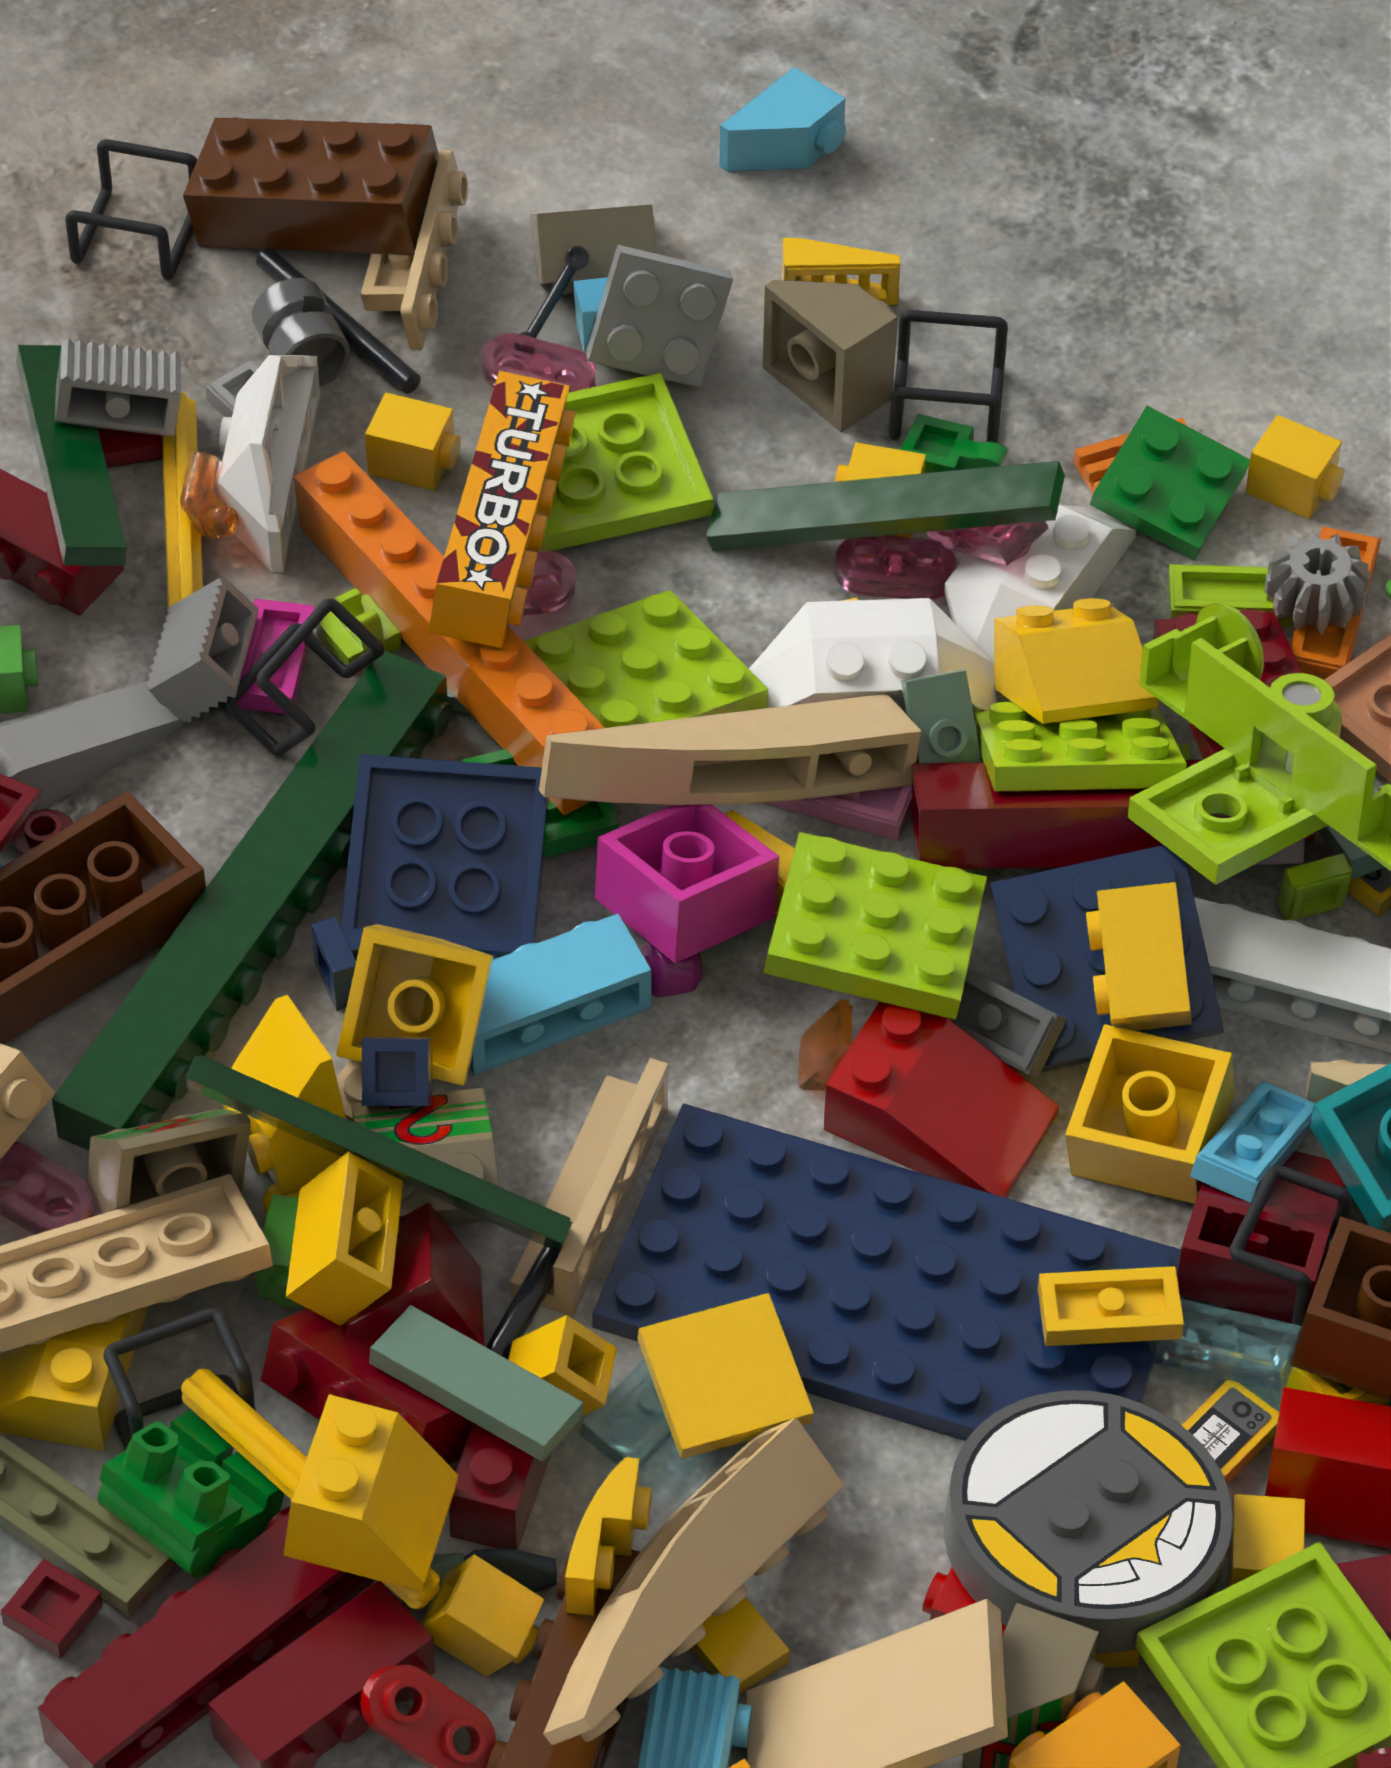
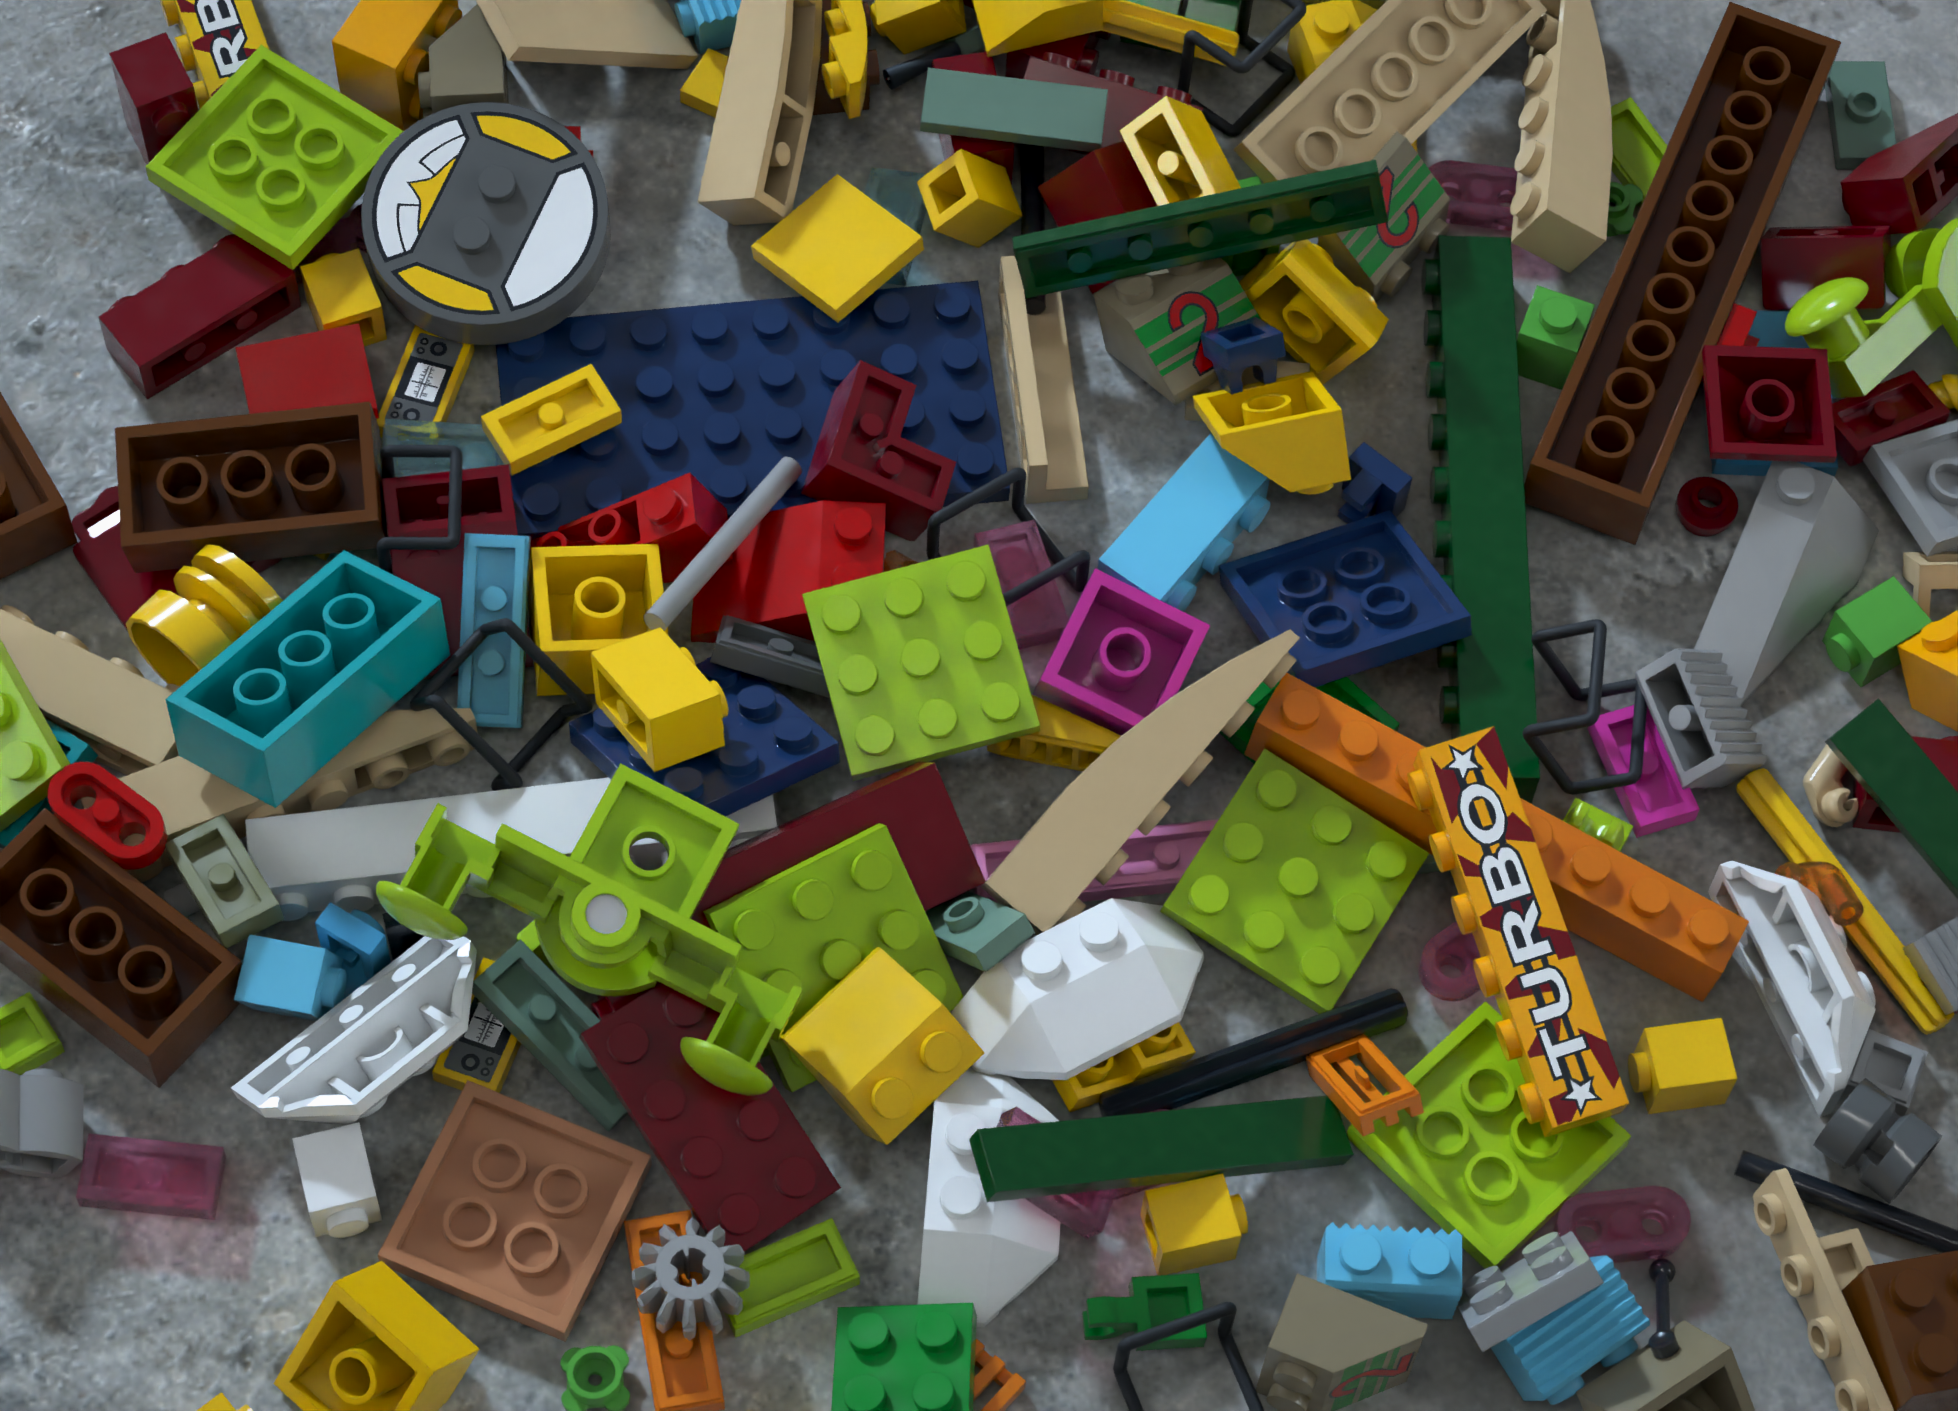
camera: 150 degrees right, 10 degrees up
(70, 1011) = (1551, 336): none -> bright green brick
(127, 592) = (1826, 792): none -> tan arm
(677, 1066) = (1061, 566): none -> black piece
(680, 564) = (1360, 1114): none -> orange tile
(724, 1014) = (1018, 557): none -> clear pink plate
(739, 586) = (1256, 1056): none -> black axle
(747, 399) = (1395, 1268): none -> medium azure brick
(818, 1146) = (868, 461): none -> dark red panel
(1001, 1109) = (723, 544): none -> light grey bar
(1065, 1177) = (674, 515): none -> red slope
(1261, 1070) = (508, 776): none -> black piece

